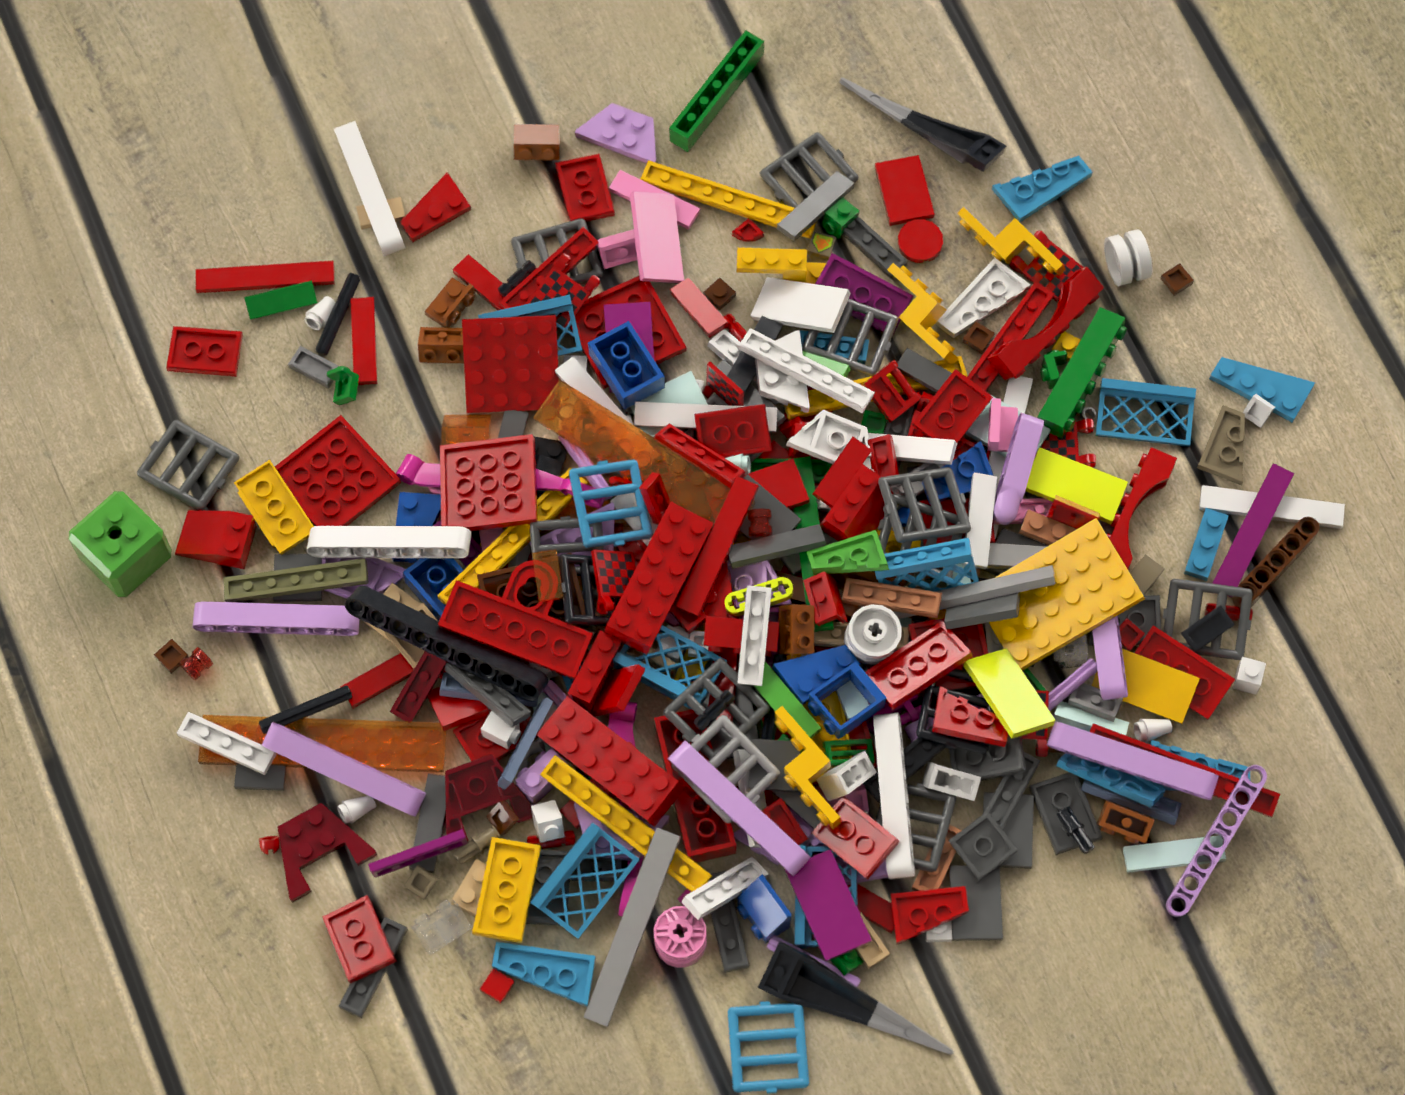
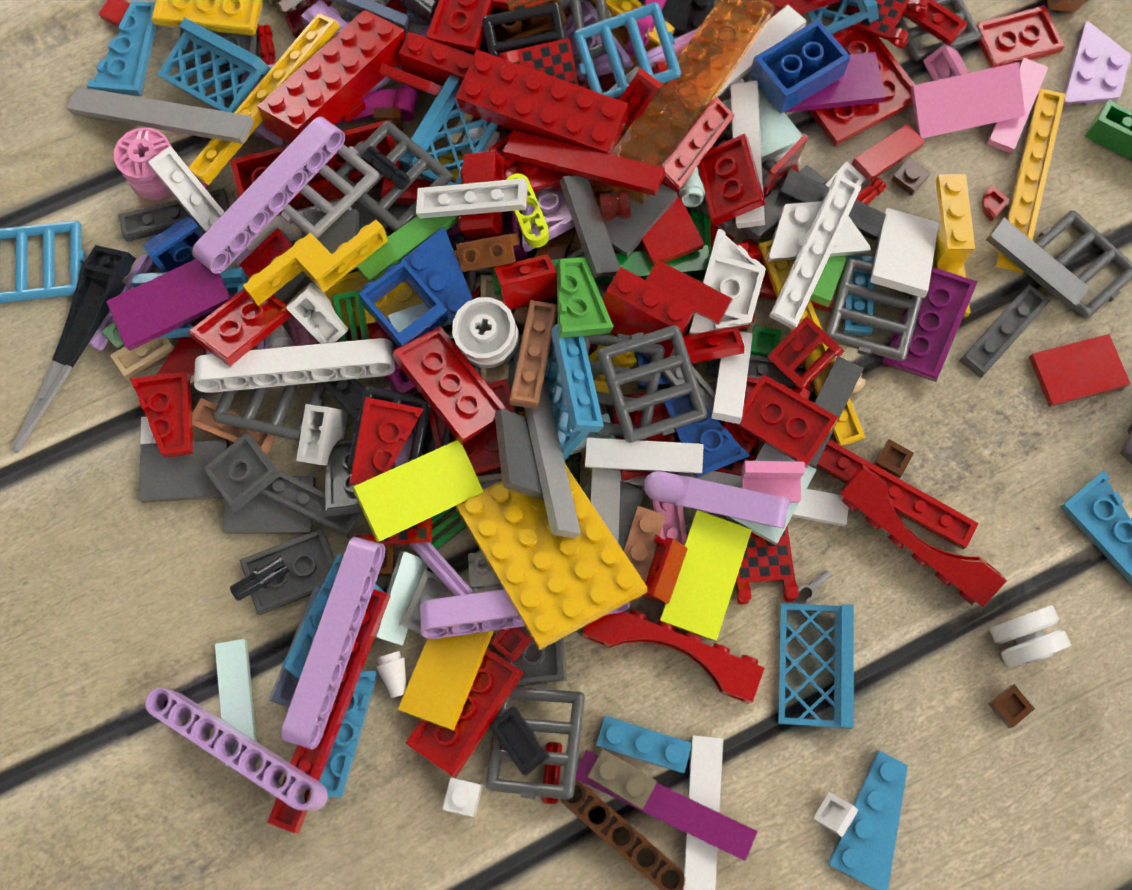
camera: 85 degrees right, 5 degrees up
(547, 821) = (278, 35): white brick -> none
(642, 726) = (391, 114): none -> reddish brown plate
(821, 245) = (990, 280): tile -> none
(839, 217) = (1029, 294): green bracket -> none
(920, 240) = (1014, 390): red tile -> none
(923, 313) = (913, 389): yellow bracket -> none
(985, 295) = (954, 468): white wing -> none
(1010, 242) = (1029, 492): yellow bracket -> none
(1037, 273) = (1003, 543): red flag -> none
(1049, 364) = (857, 543): green bracket -> none
(1067, 342) = (896, 567): yellow plate -> none
(1082, 371) = (862, 582): green brick -> none
(1125, 821) = (268, 638): dark orange brick -> none
(1146, 573) = (590, 659): dark tan slope -> none
(1224, 449) = (780, 770): dark tan wing -> none
(1234, 557) = (622, 779): none -> dark tan plate

